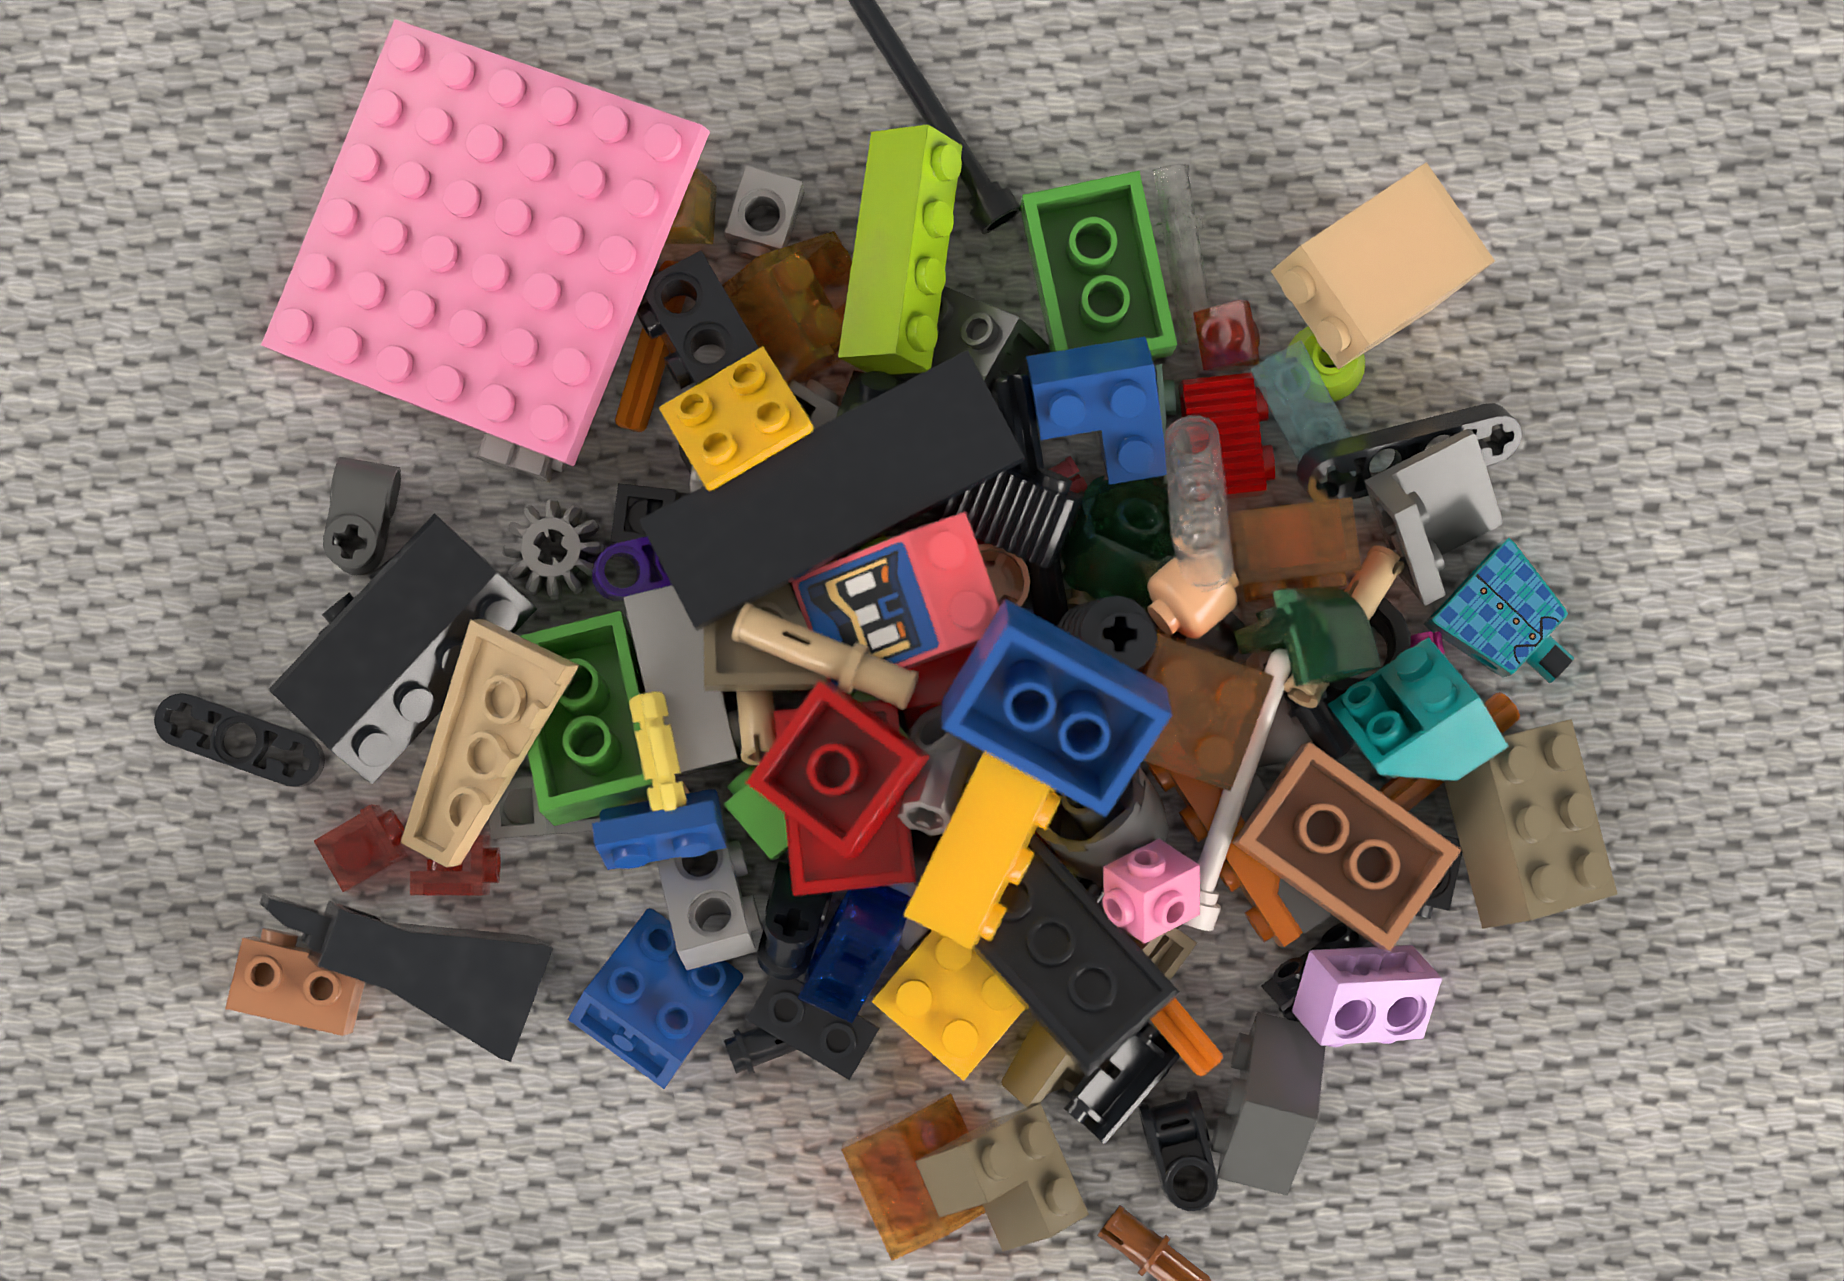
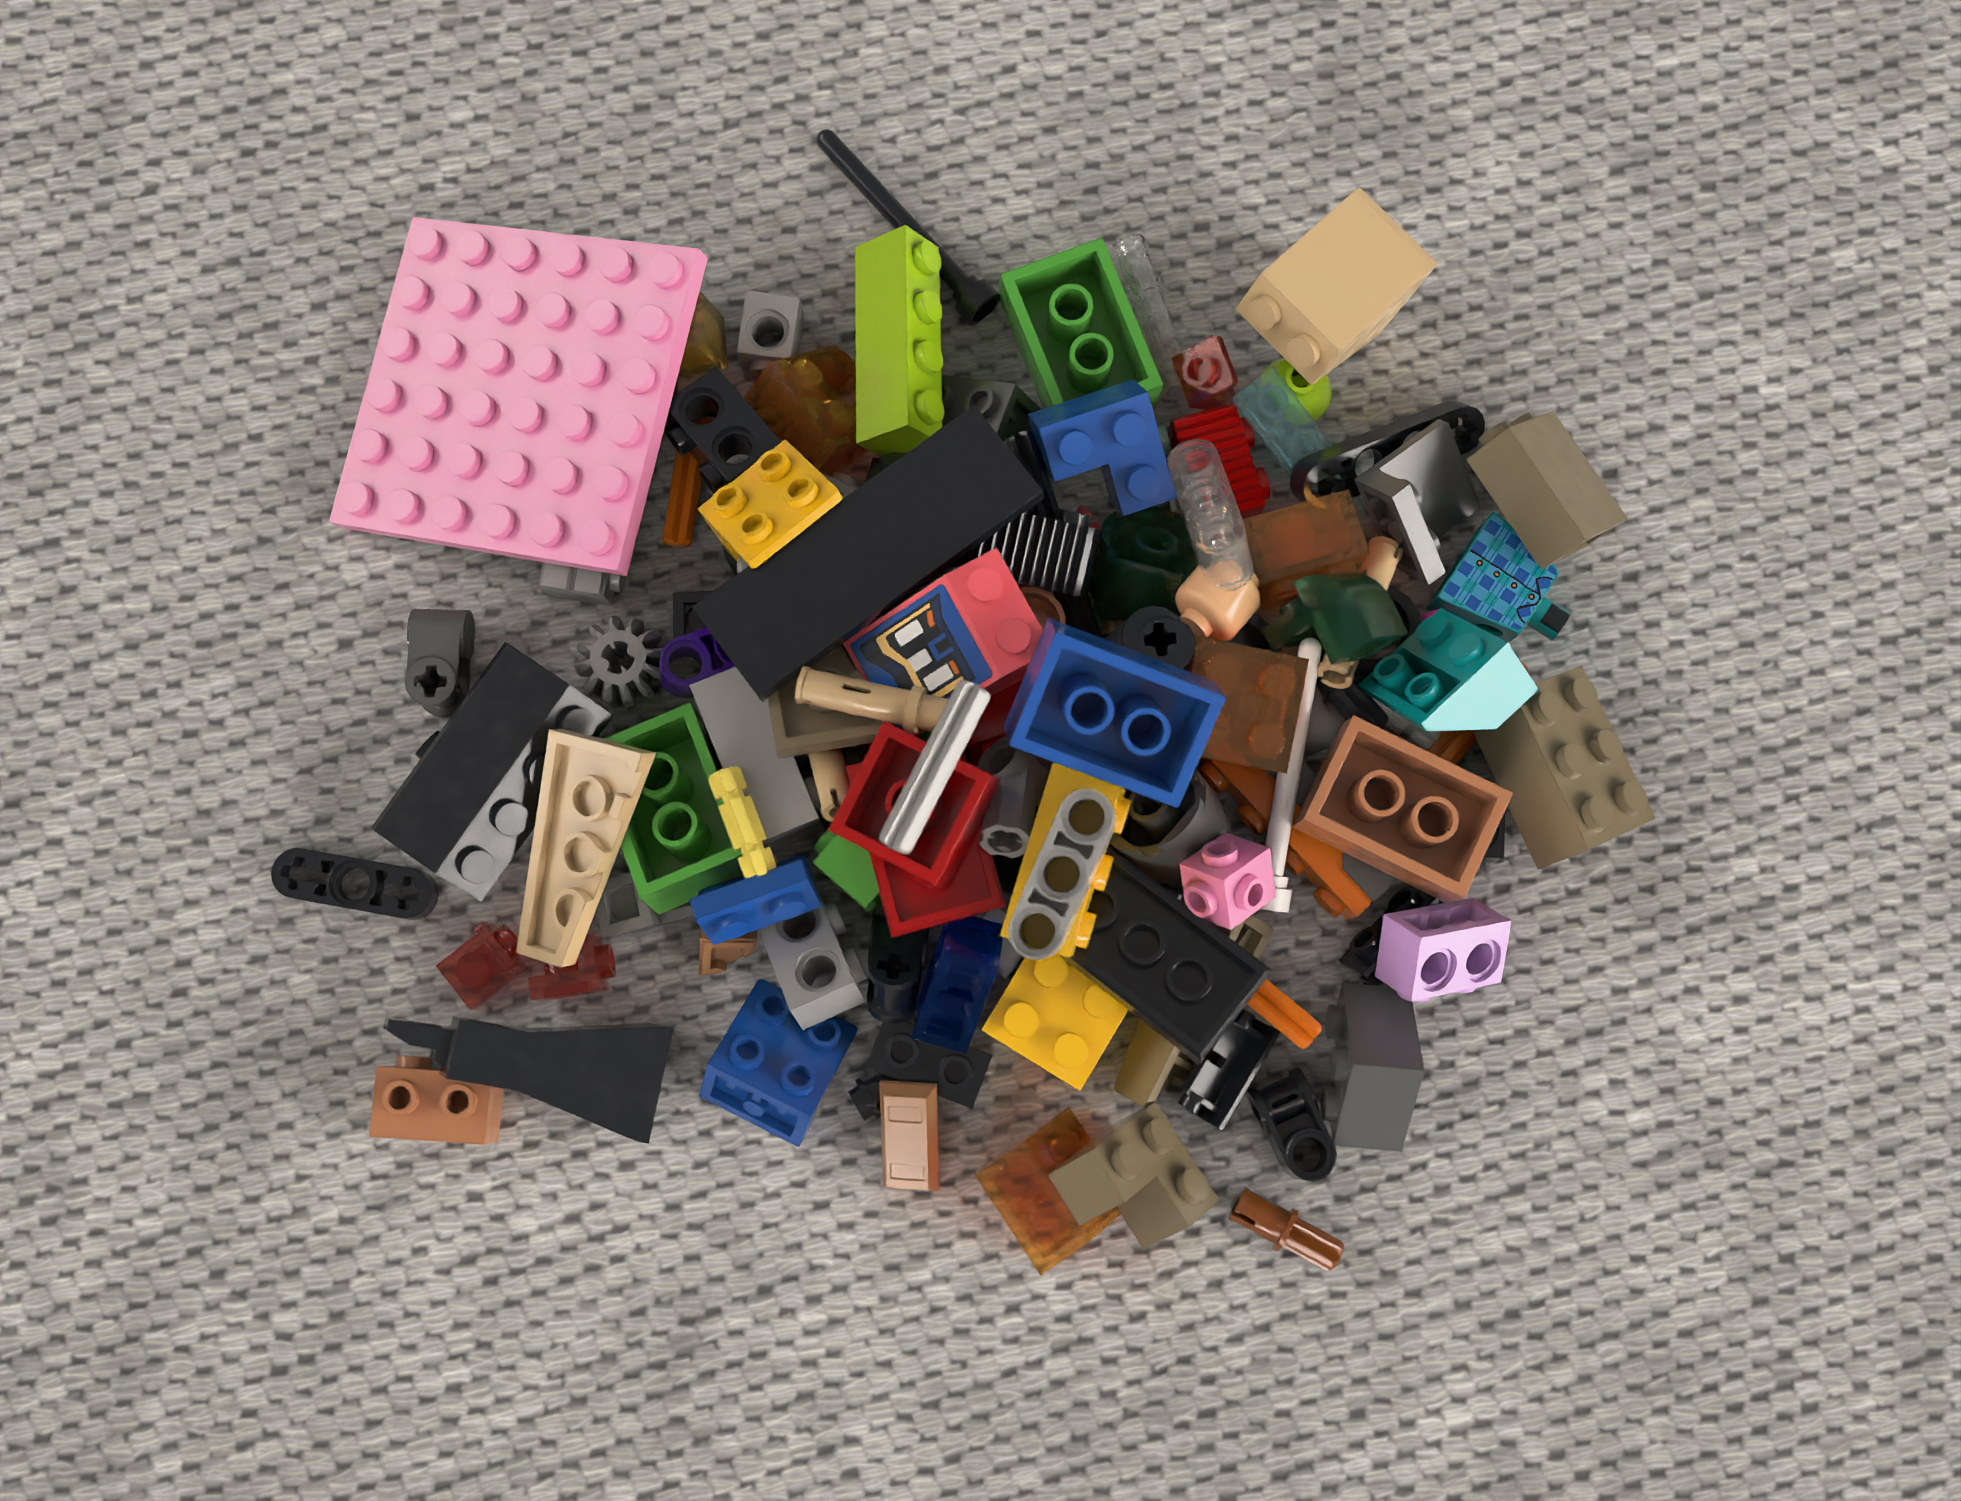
camera: 10 degrees left, 5 degrees down
(605, 881) = (714, 958): none -> medium nougat tile
(780, 1096) = (909, 1135): none -> tile
(863, 739) = (934, 766): none -> light grey axle
(954, 888) = (1040, 896): none -> light grey beam
(1569, 519) = (1544, 487): none -> dark tan brick

